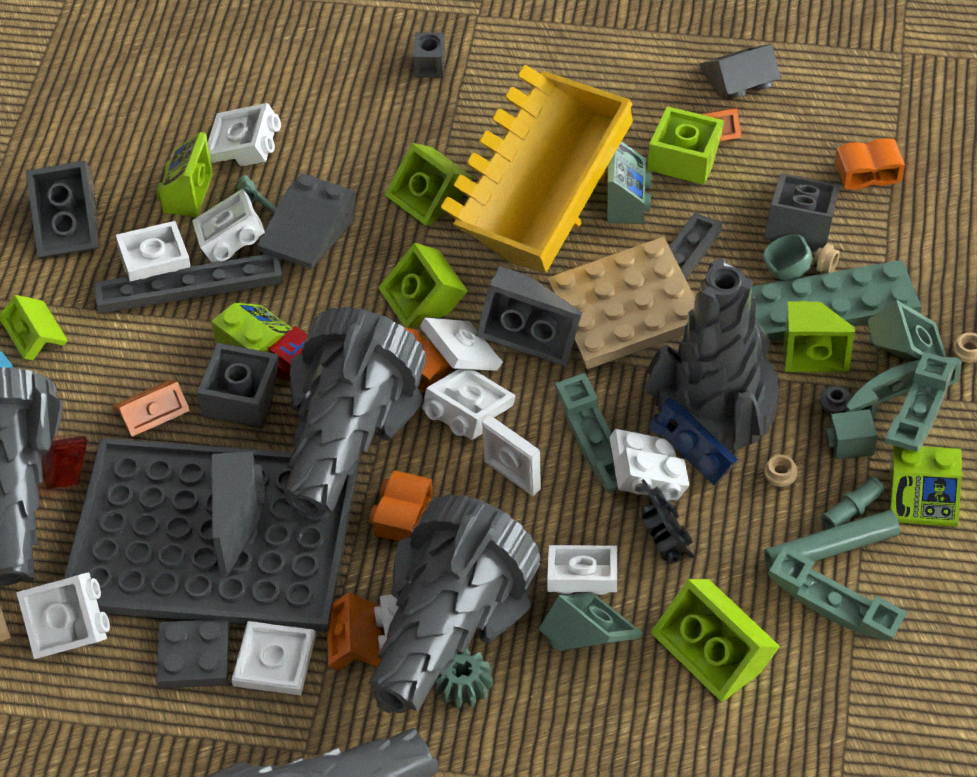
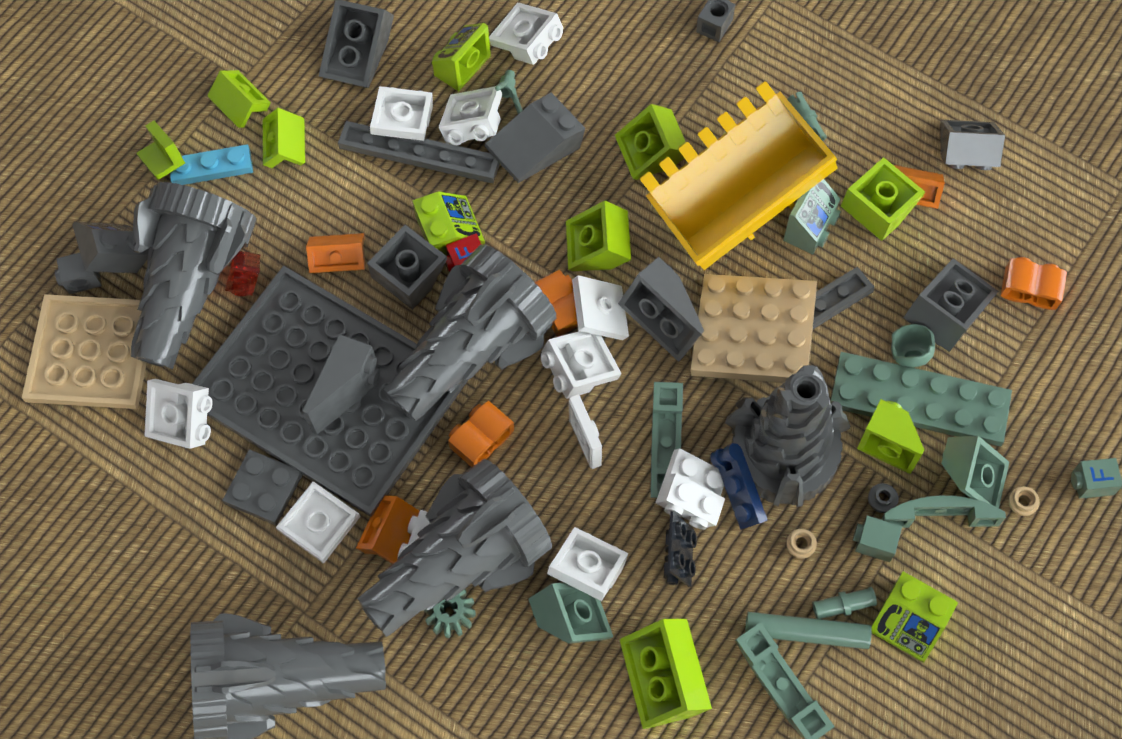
camera: 25 degrees right, 15 degrees up
(826, 259) = (945, 361): tan plate -> none
(922, 402) = (946, 544): sand green slope -> none

